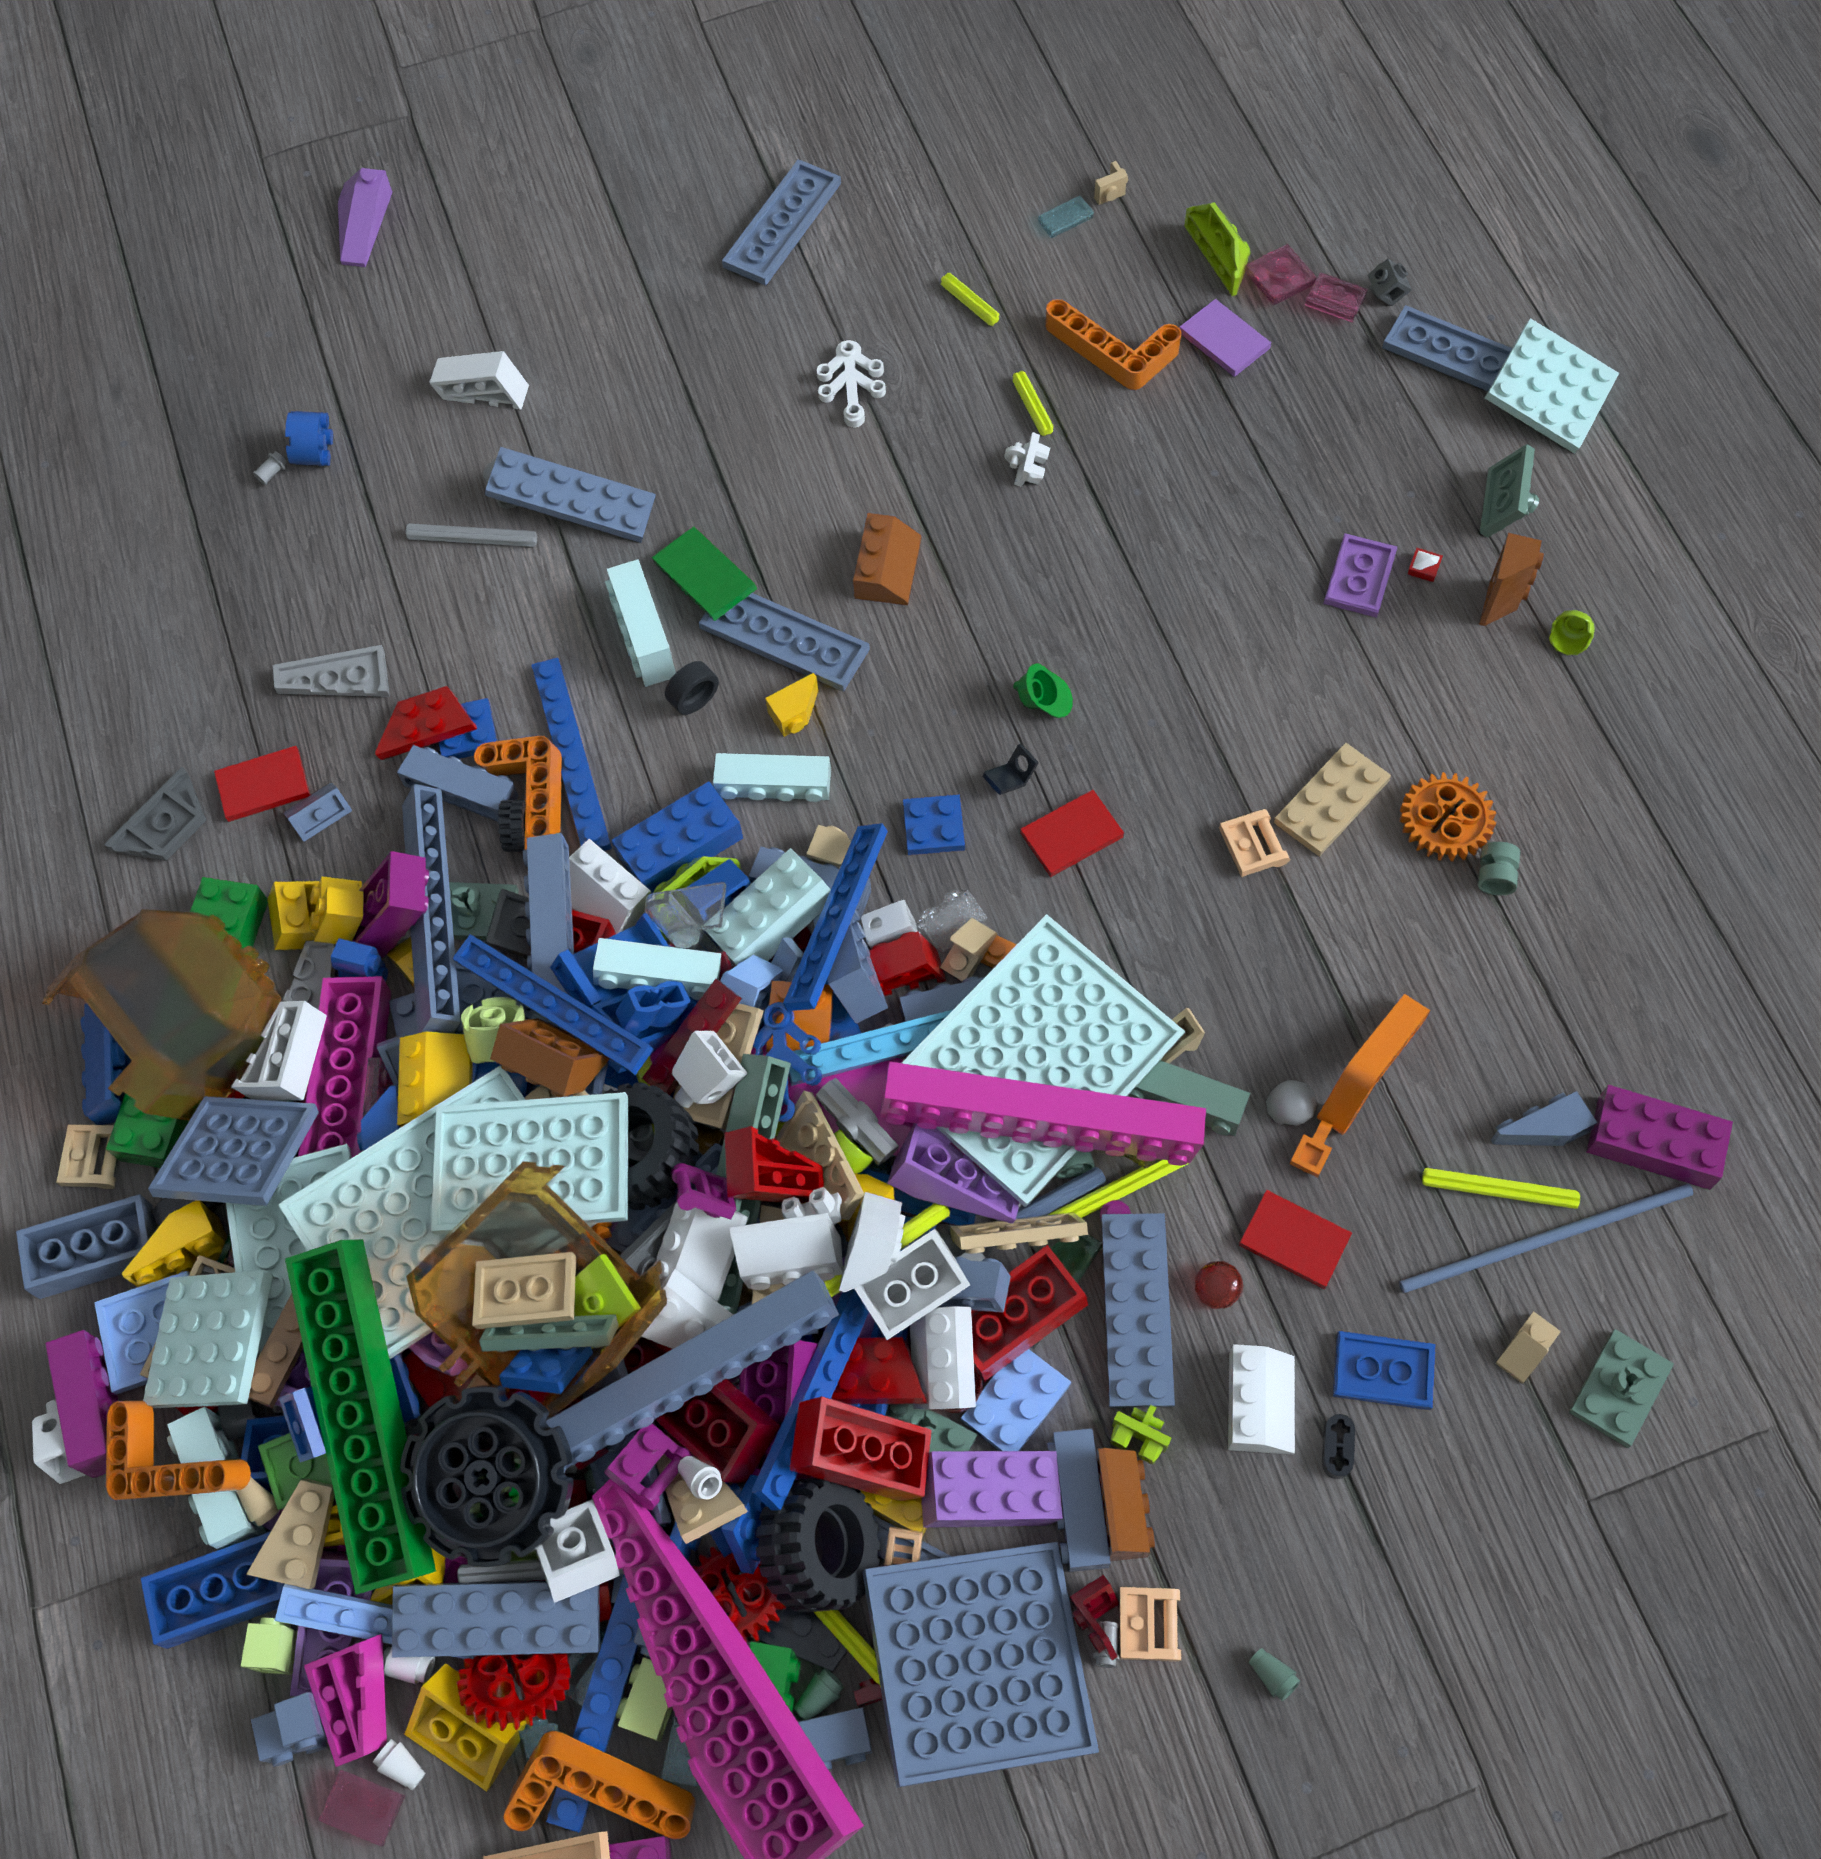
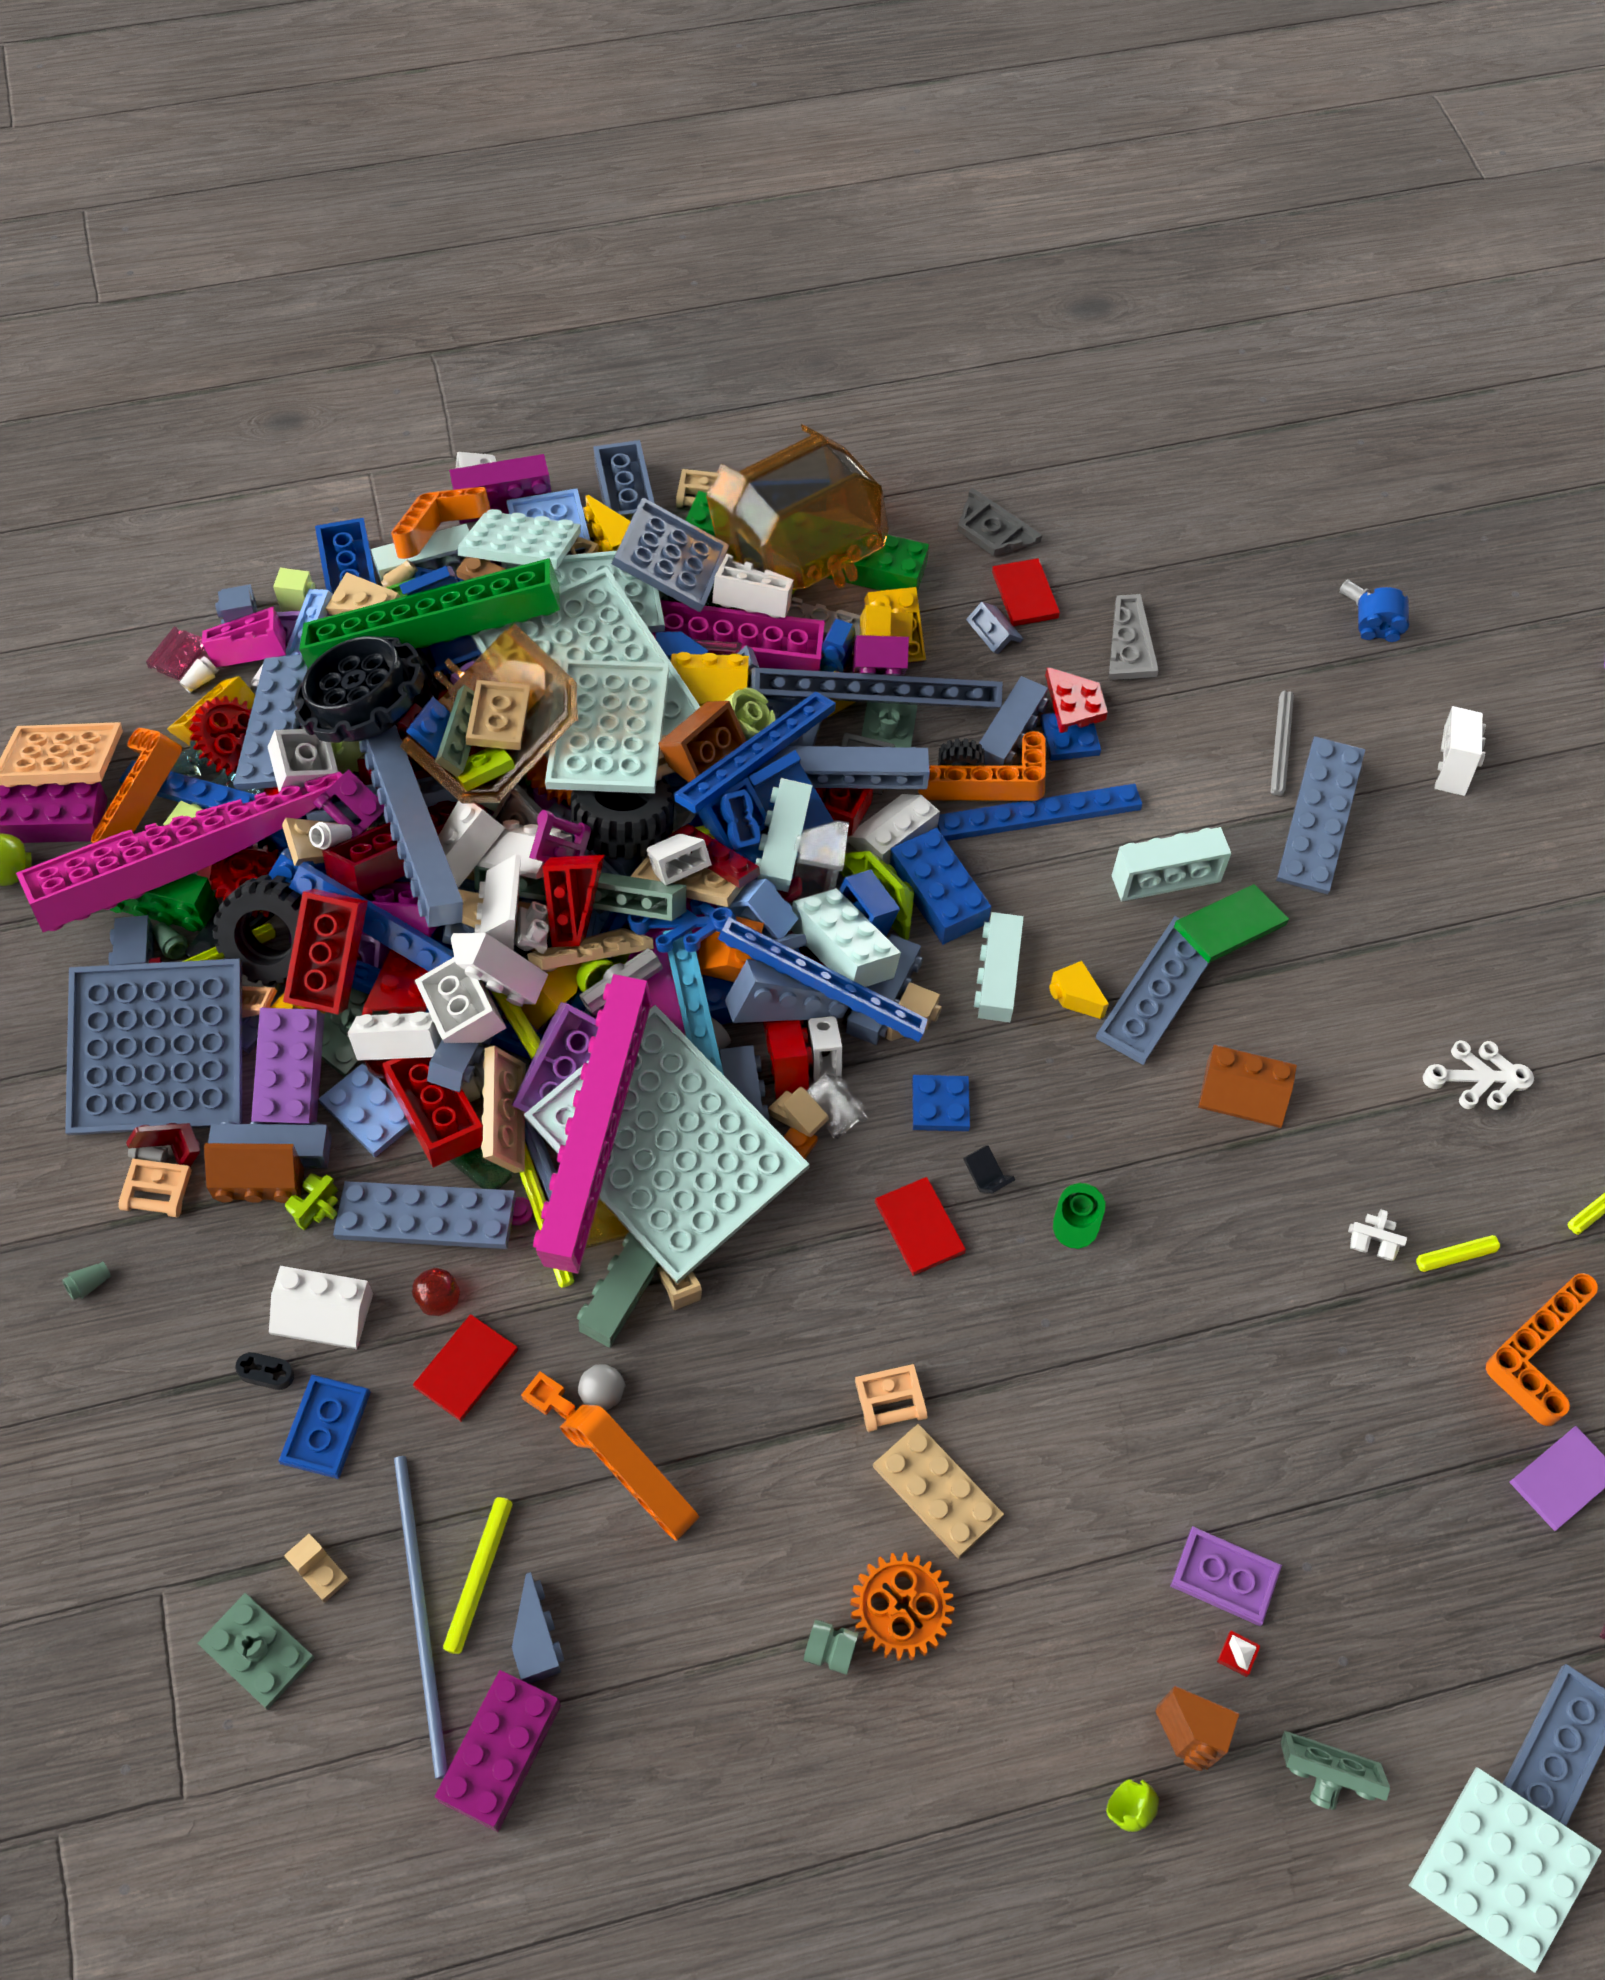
camera: 90 degrees right, 5 degrees down
(691, 687) = (1097, 902): black tyre -> none

